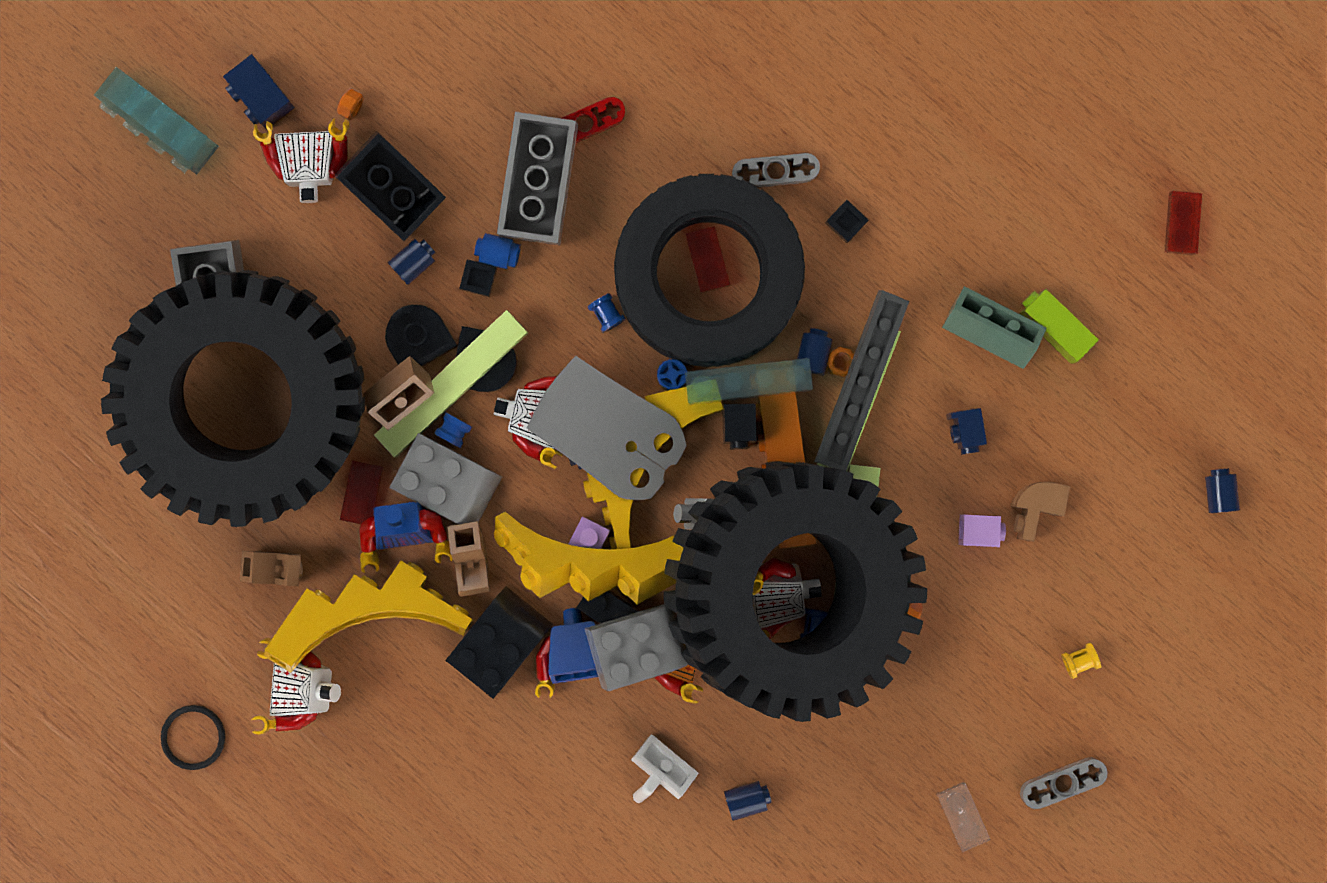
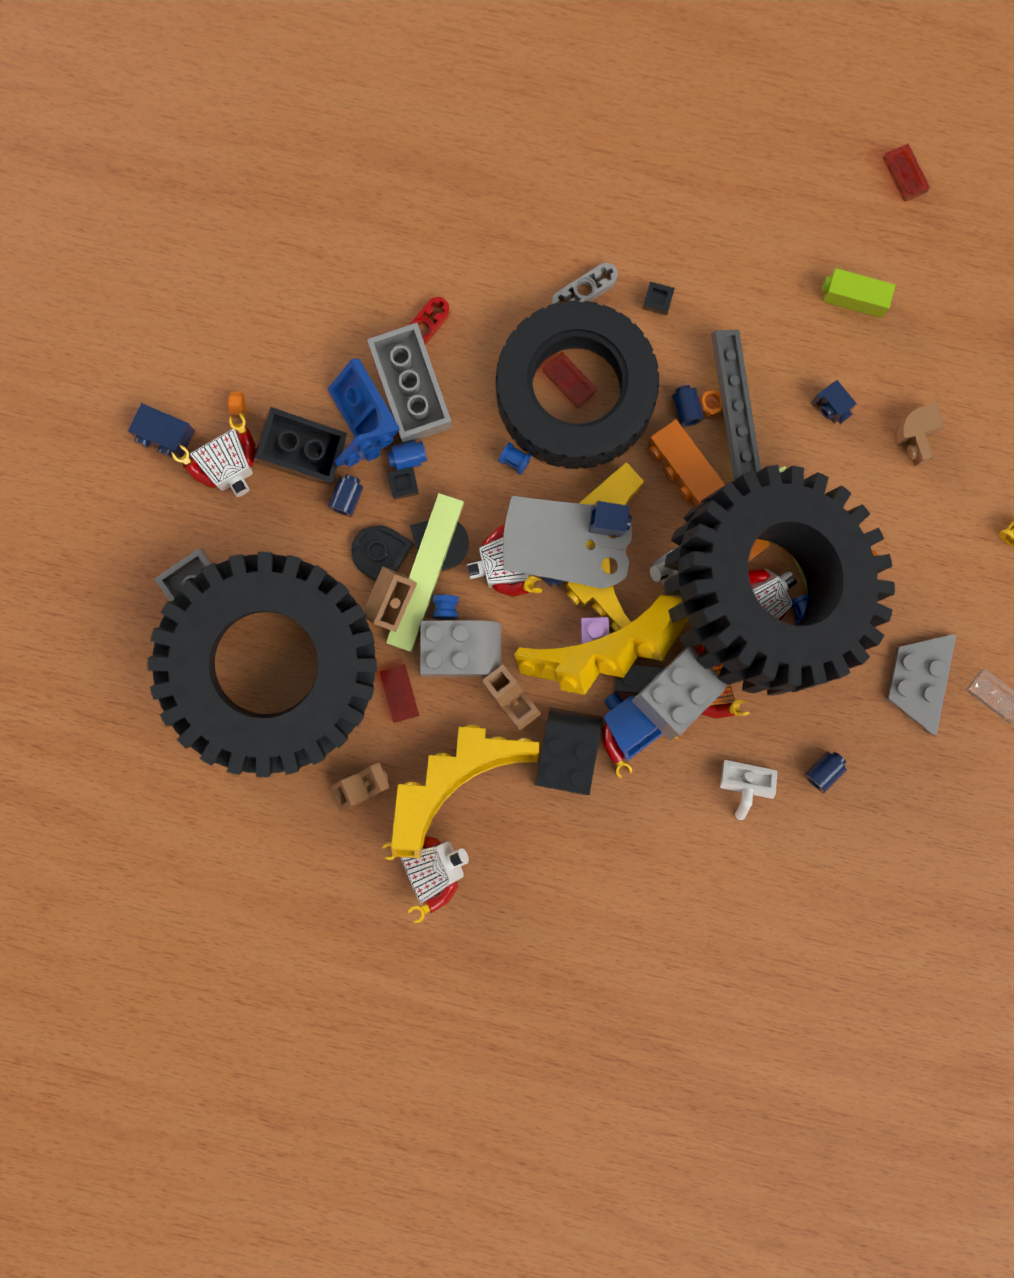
camera: 25 degrees left, 5 degrees down
(156, 120) = (93, 493): clear light blue brick -> none
(193, 708) = (342, 949): black tyre -> none
(399, 527) = (444, 701): torso -> none
(475, 186) = (364, 414): none -> blue bracket
(663, 432) = (609, 519): none -> dark blue brick
(671, 369) = (593, 474): blue wheel -> none
(739, 425) = (663, 486): black brick -> none
(748, 381) = (653, 447): clear light blue brick -> none
(897, 759) = (921, 679): none -> light grey wing
(981, 530) = (887, 472): lavender brick -> none
(994, 327) = (812, 316): sand green brick -> none

